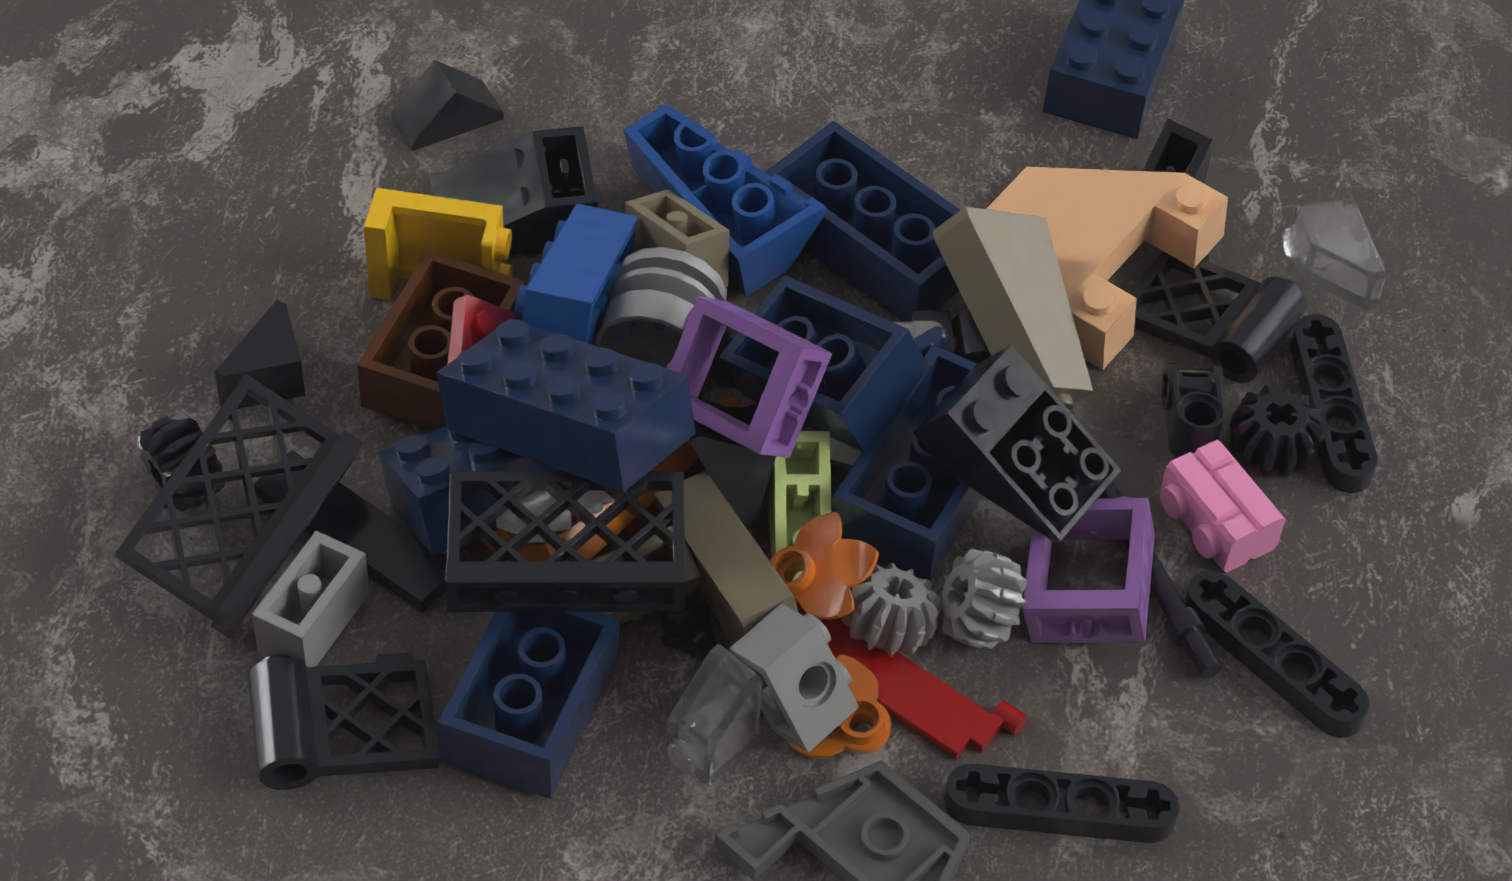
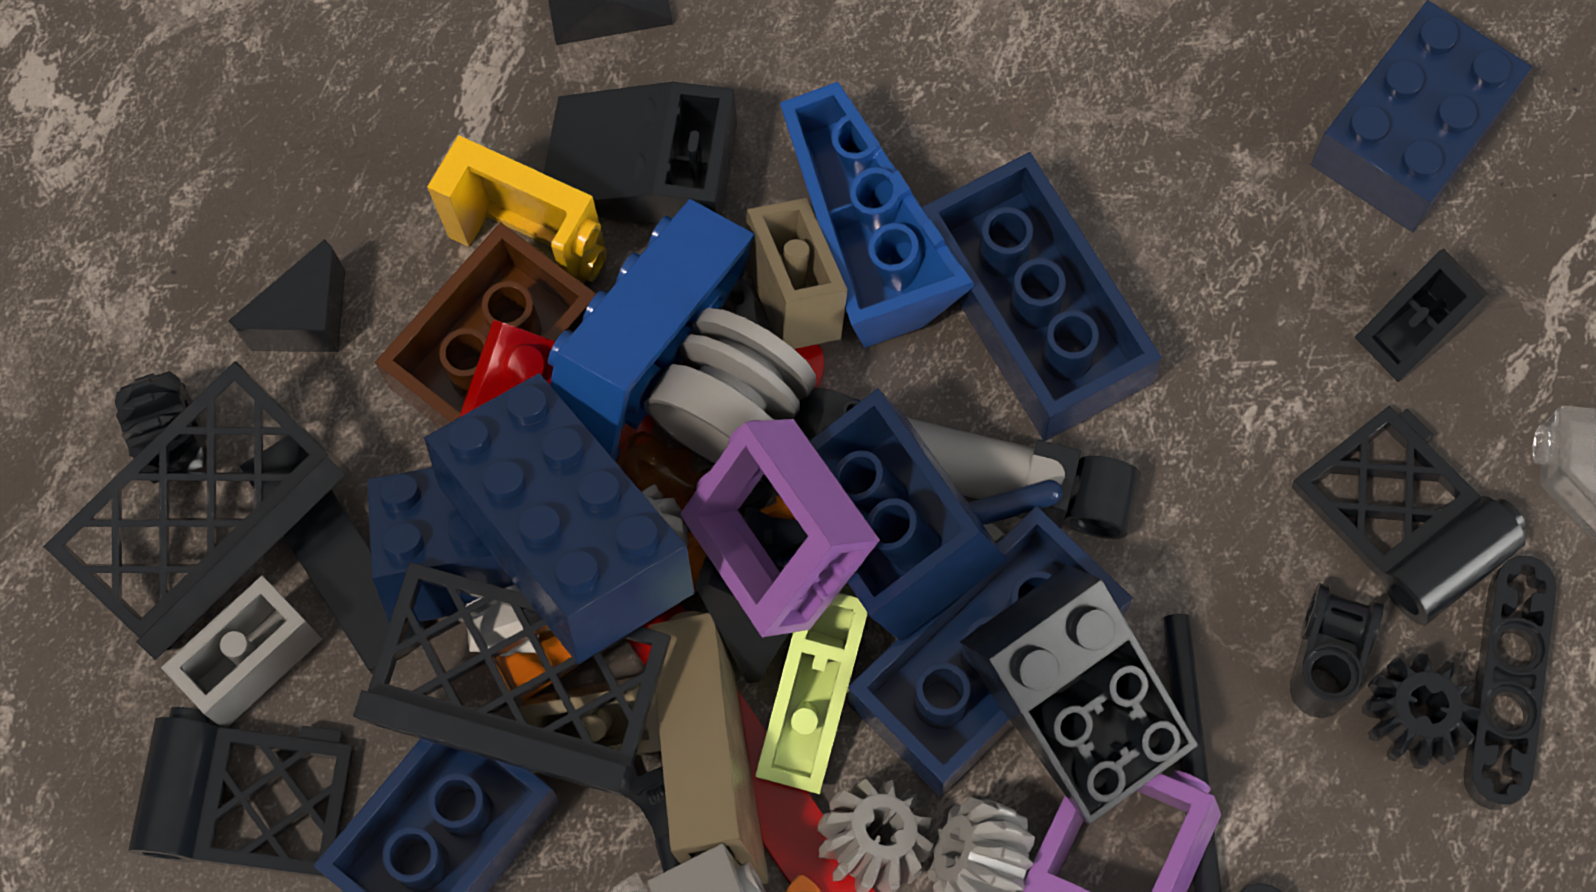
camera: 25 degrees right, 20 degrees up
(828, 567) = (812, 781): orange plate -> none
(1016, 293) = (1160, 474): dark tan slope -> none
(1098, 224) = (1273, 359): light nougat wedge -> none
(1220, 506) = (1312, 799): bright pink brick -> none

